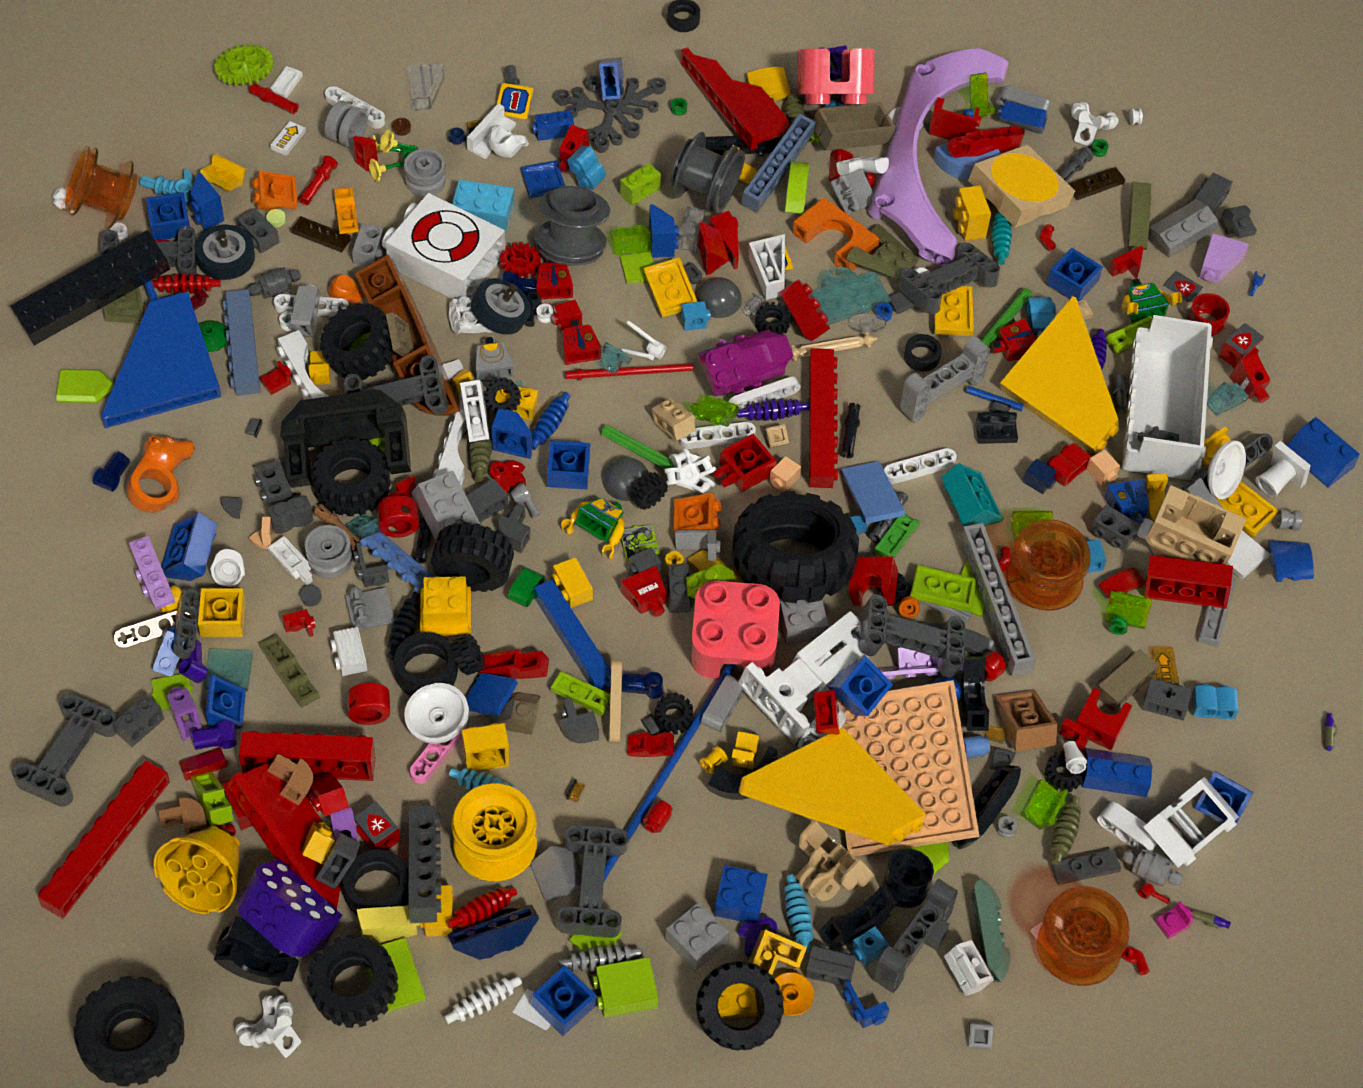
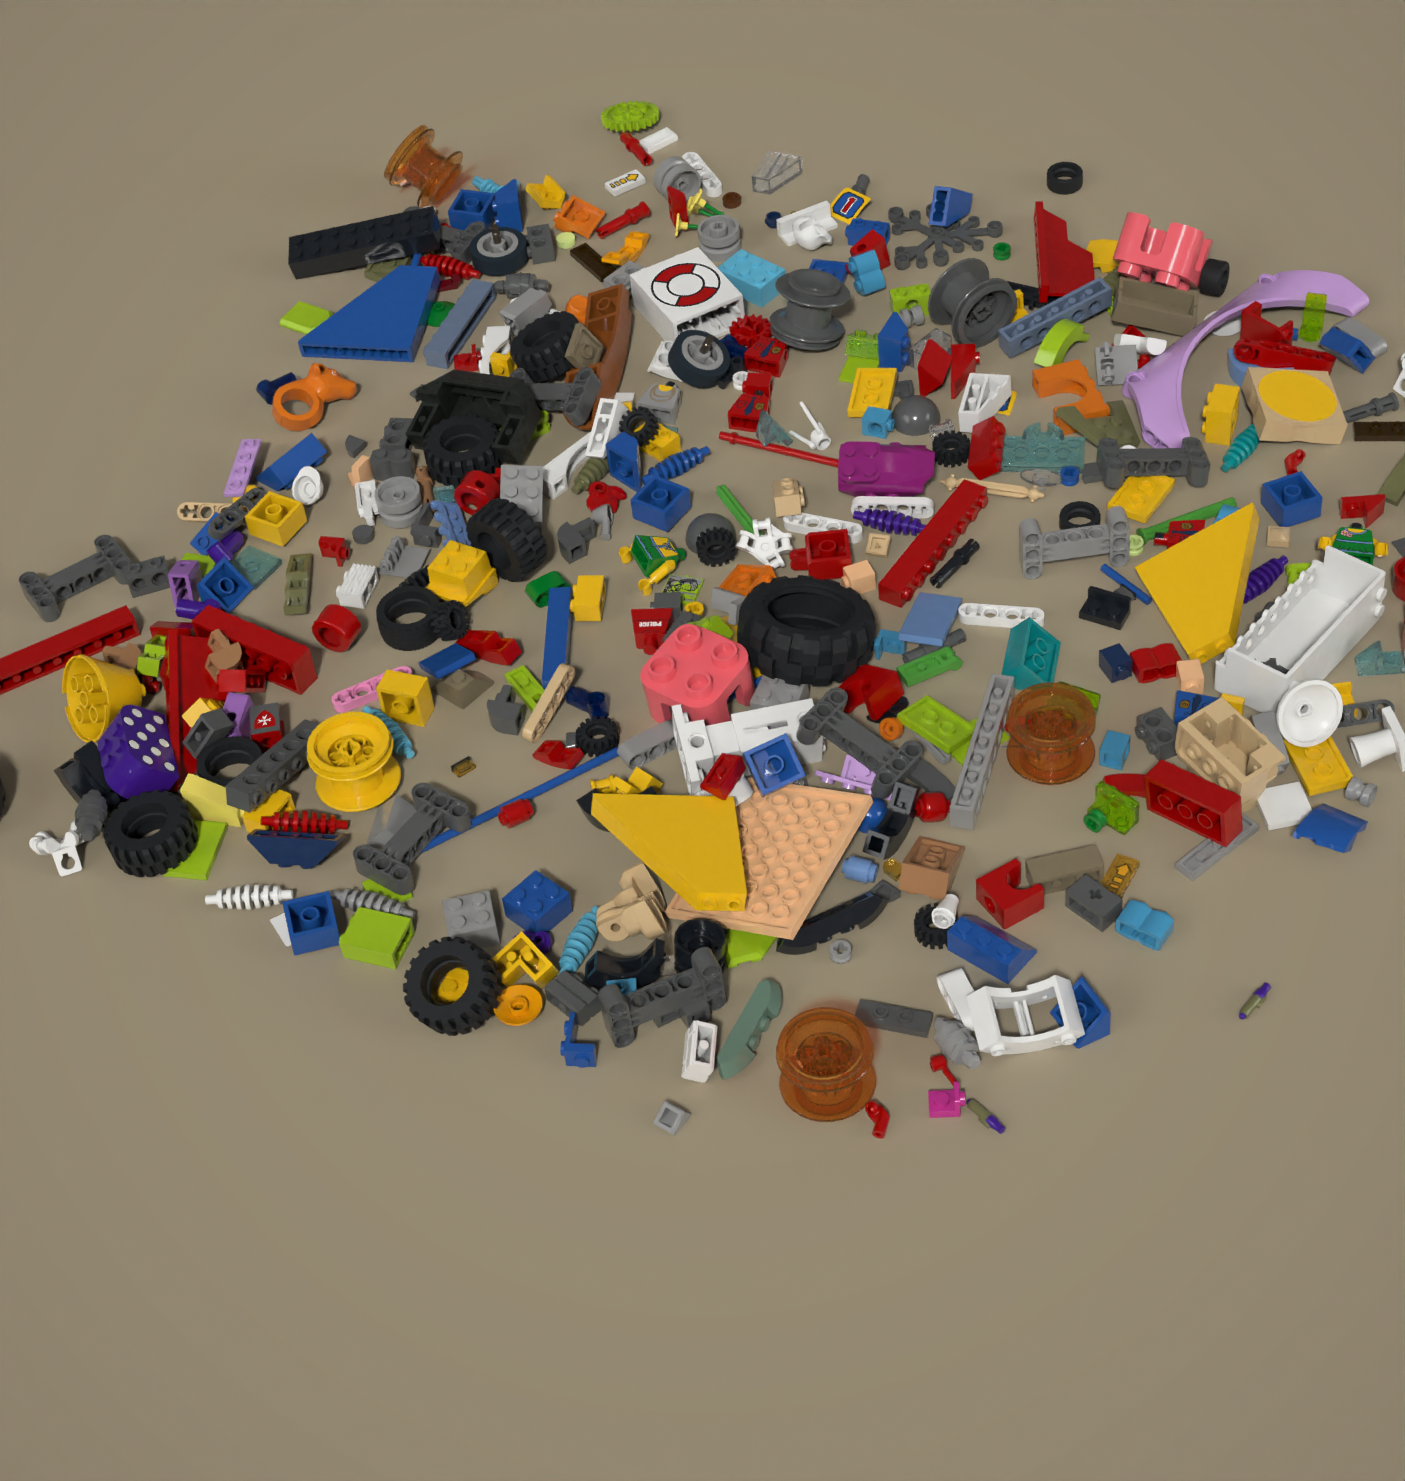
camera: 40 degrees right, 10 degrees down
(293, 990) = (91, 815): none -> dark grey piece
(435, 702) = (384, 651): white dish -> none
(488, 499) = (564, 508): dark grey brick -> none
(652, 196) = (912, 316): none -> light grey wheel
(715, 411) = (832, 504): clear neon green bracket -> none
(881, 81) = (1214, 277): none -> black tyre
(1043, 805) = (889, 944): clear neon green bracket -> none
(1065, 830) = (894, 976): olive piece -> none
(1074, 732) = (972, 898): red bracket -> none

